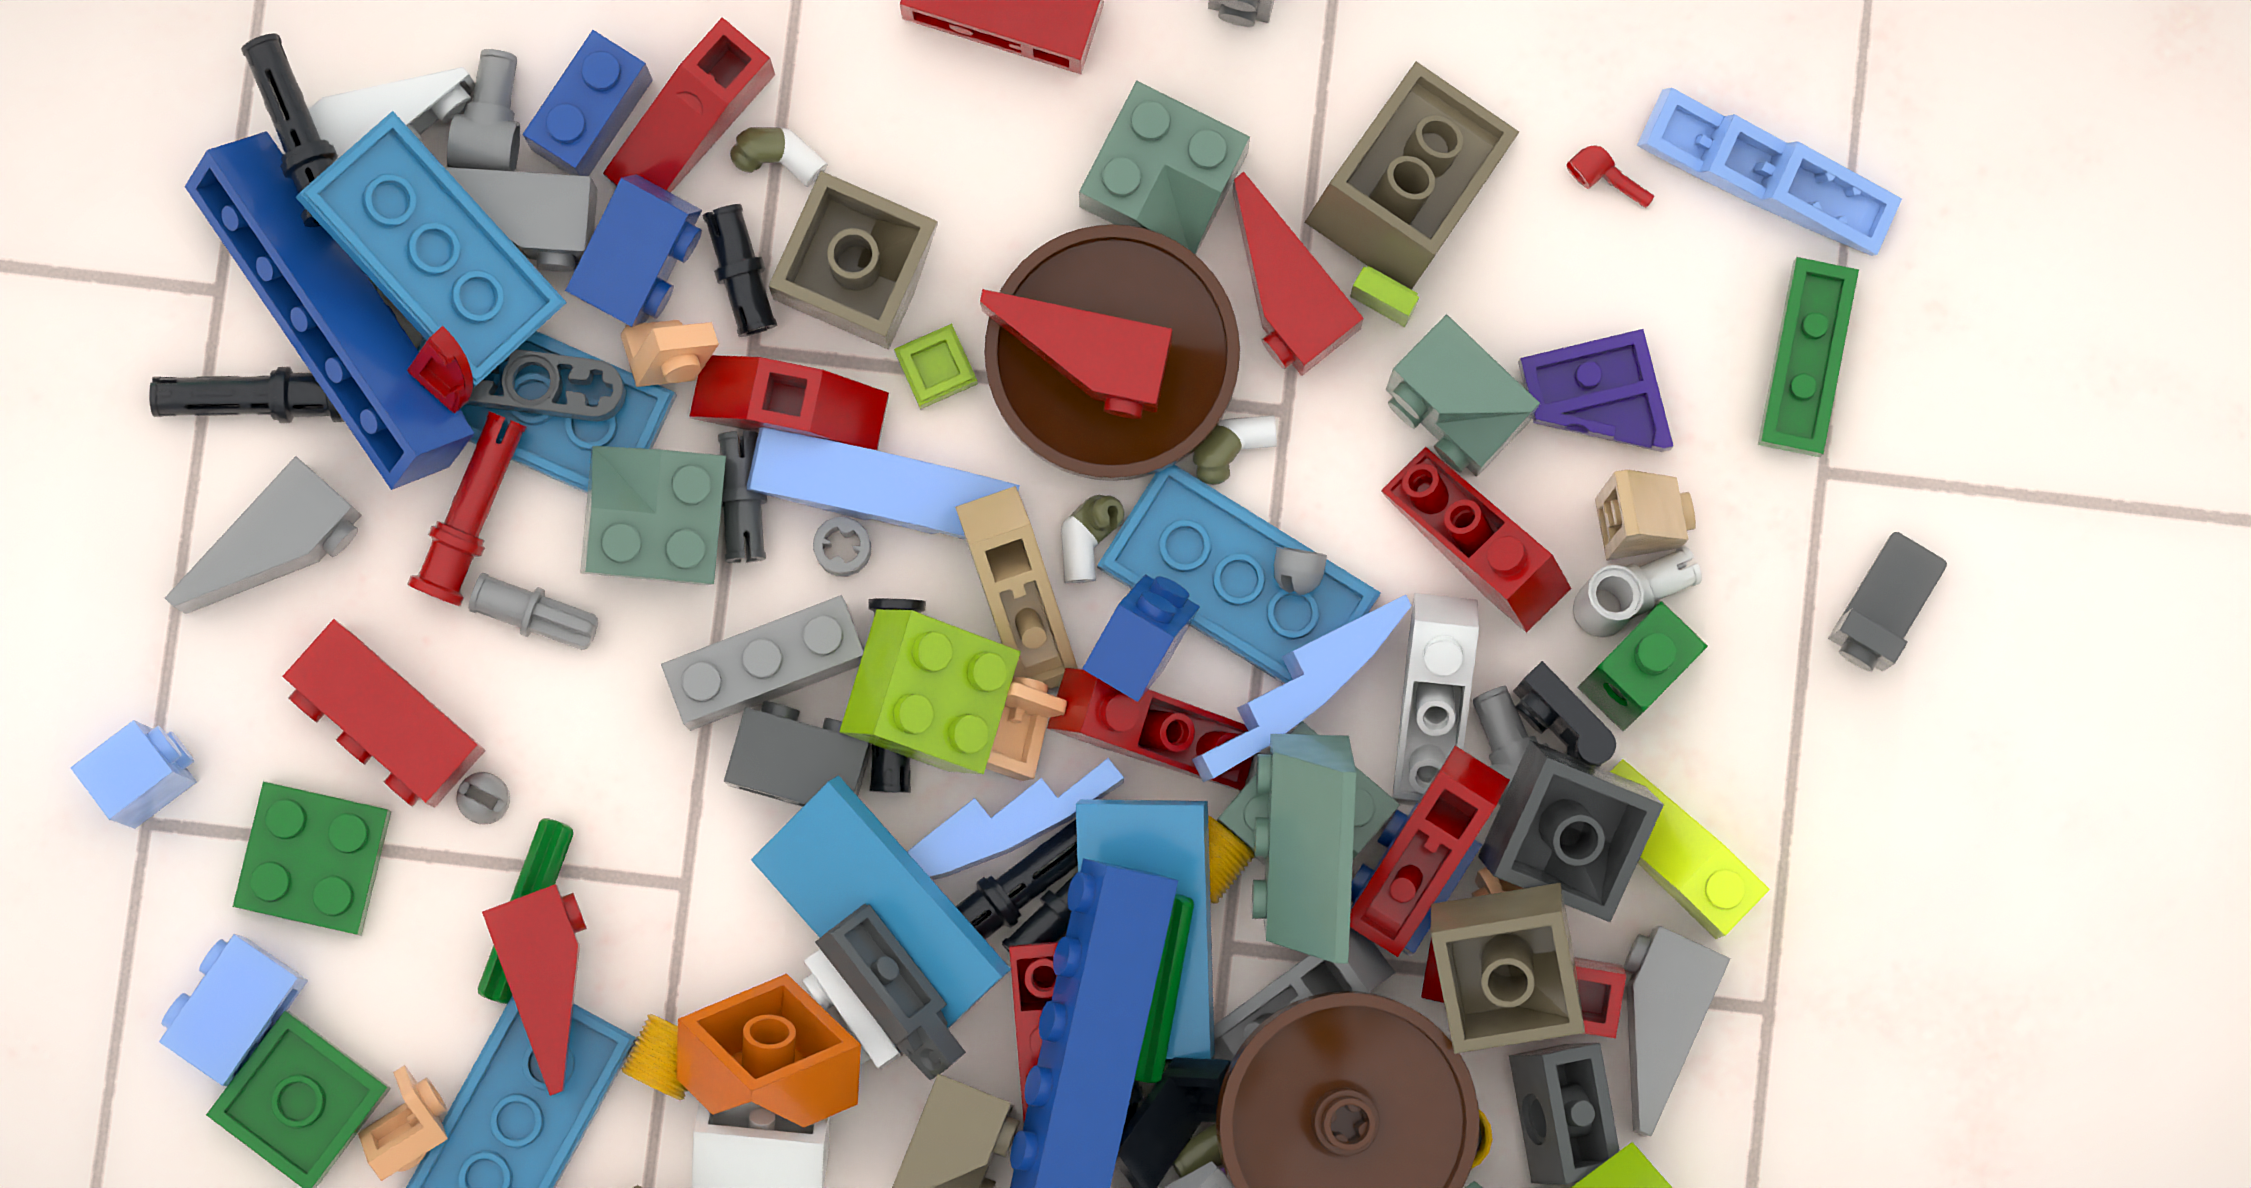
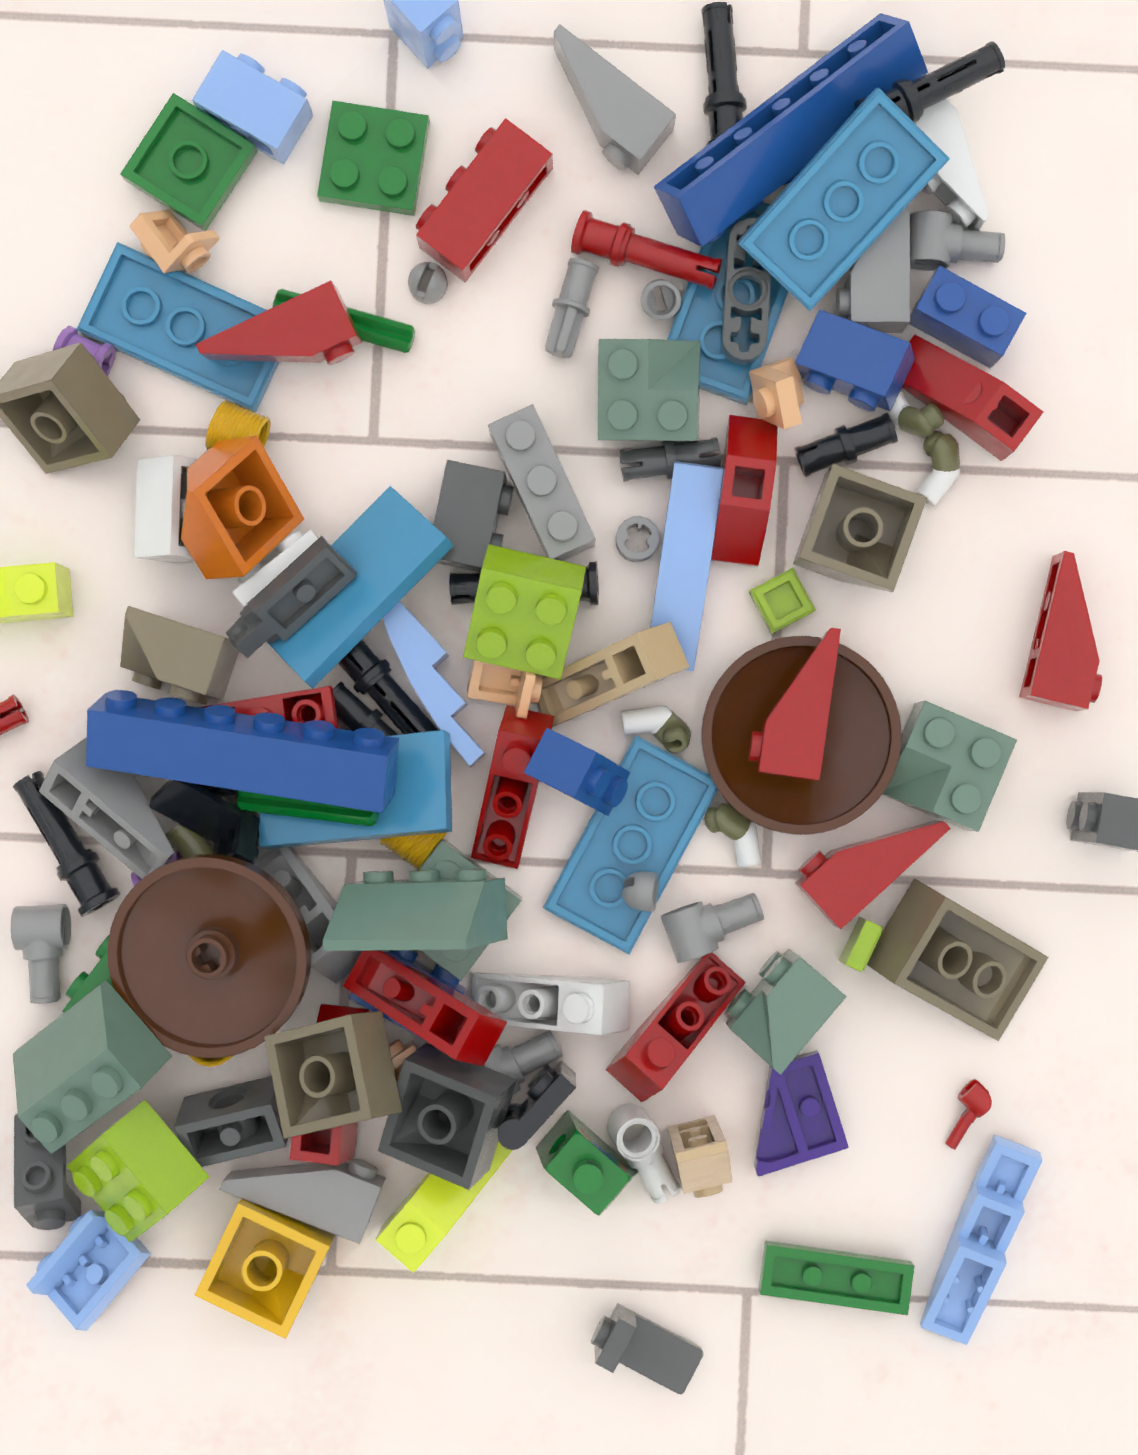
camera: 85 degrees right, 5 degrees up
(444, 370) = (748, 217): red tile -> none
(528, 482) = (670, 296): none -> light grey hinge
(717, 178) = (913, 420): none -> olive arm
(1317, 675) = (559, 911): light blue slope -> none
(1351, 501) = (698, 928): none -> light grey pin
(1752, 1082) = (264, 1267): none -> yellow slope

